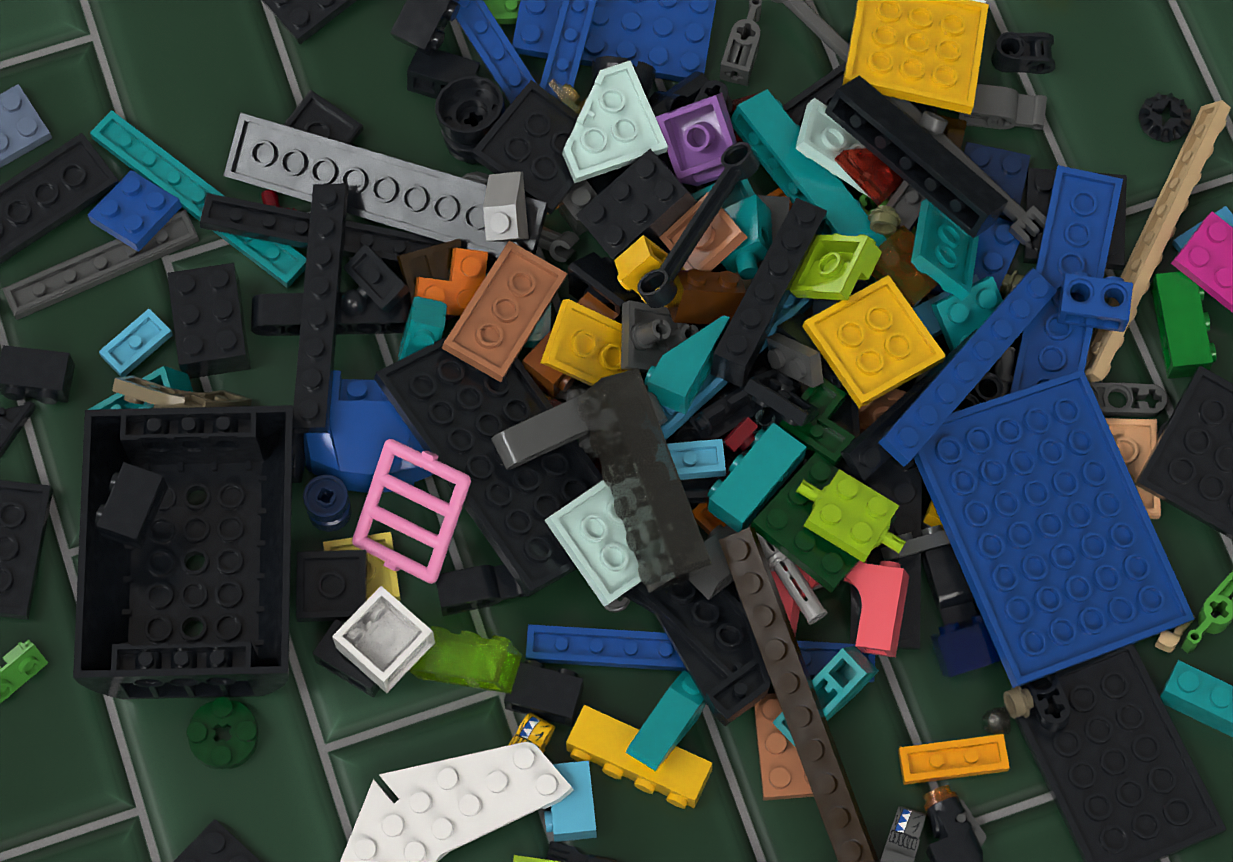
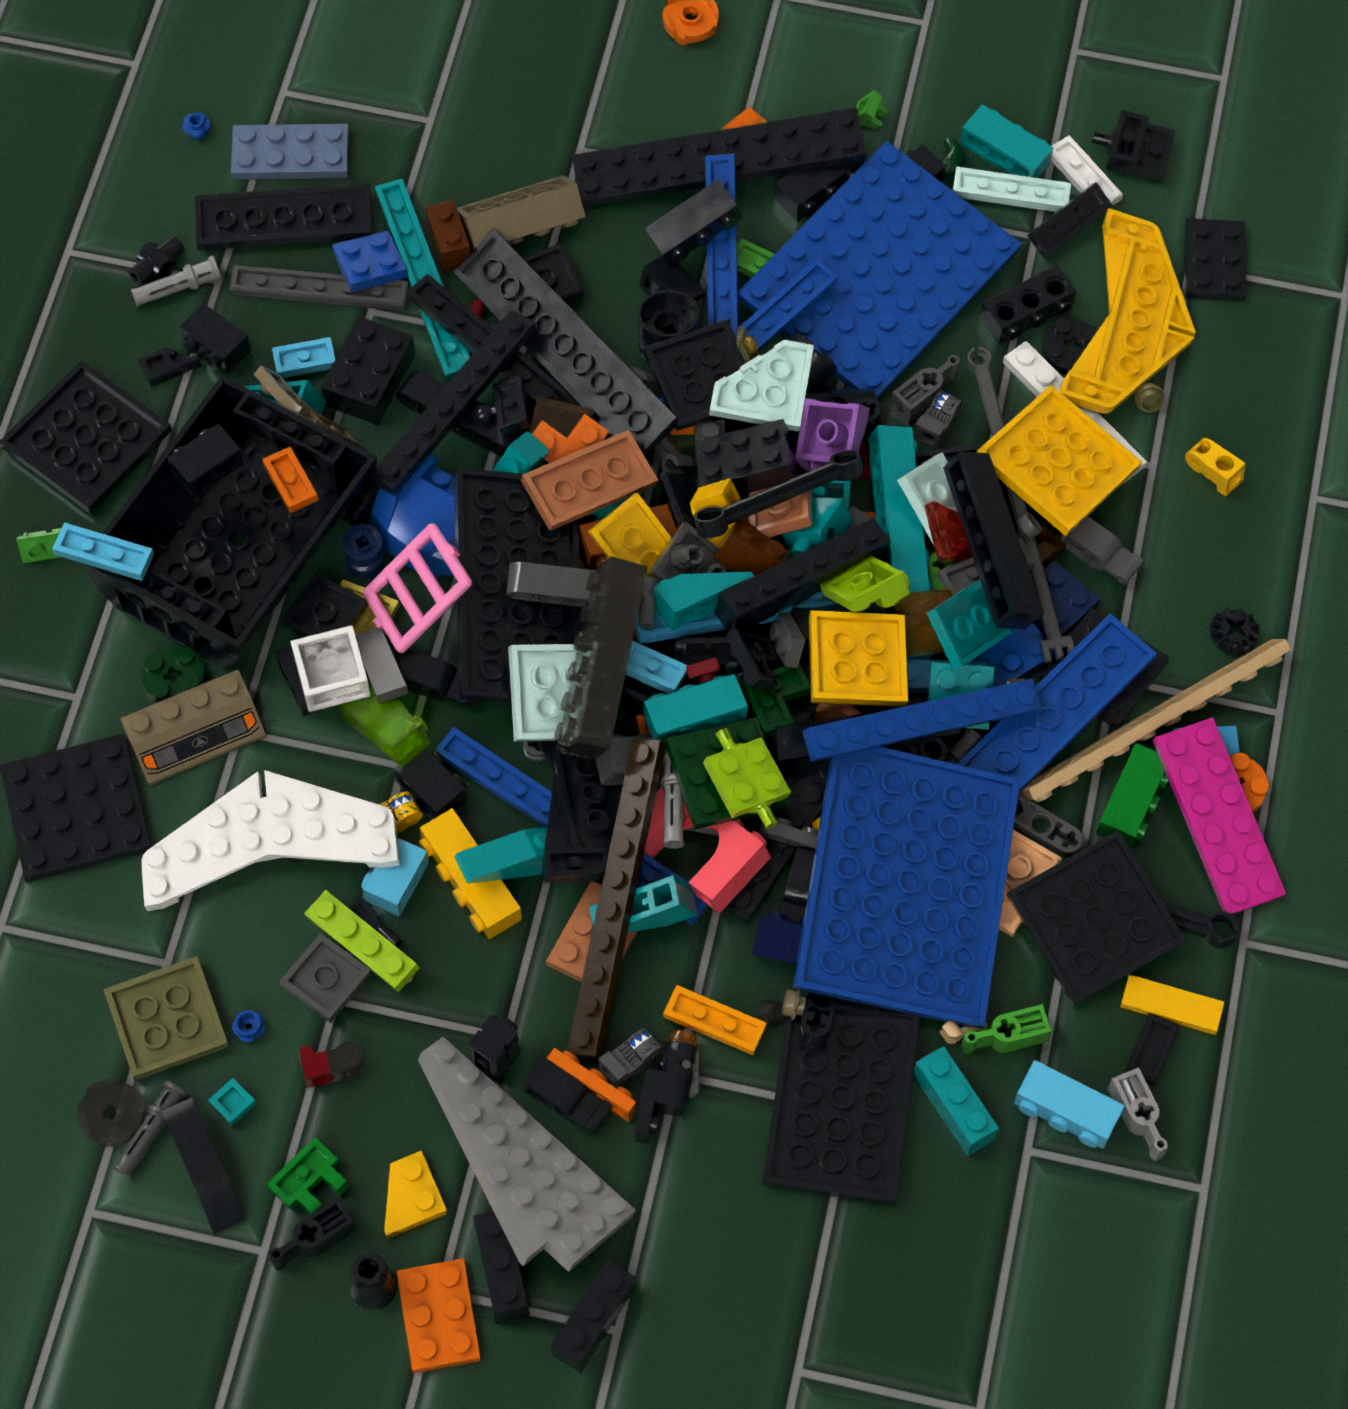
camera: 30 degrees right, 5 degrees down
(92, 656) = (103, 551): none -> medium azure plate
(195, 142) = (447, 234): none -> reddish brown brick
(227, 477) = (290, 479): none -> orange plate
(249, 79) = (523, 211): none -> dark tan slope
(279, 773) = (193, 727): none -> dark tan slope
(433, 610) = (380, 665): none -> dark grey tile
(505, 208) = (640, 403): light grey slope -> none
(774, 65) = (937, 419): none -> dark grey leg
(884, 220) = (935, 575): olive plate -> none
(1027, 53) = (1152, 517): black piece -> none
(1095, 311) = (1059, 738): blue brick -> none

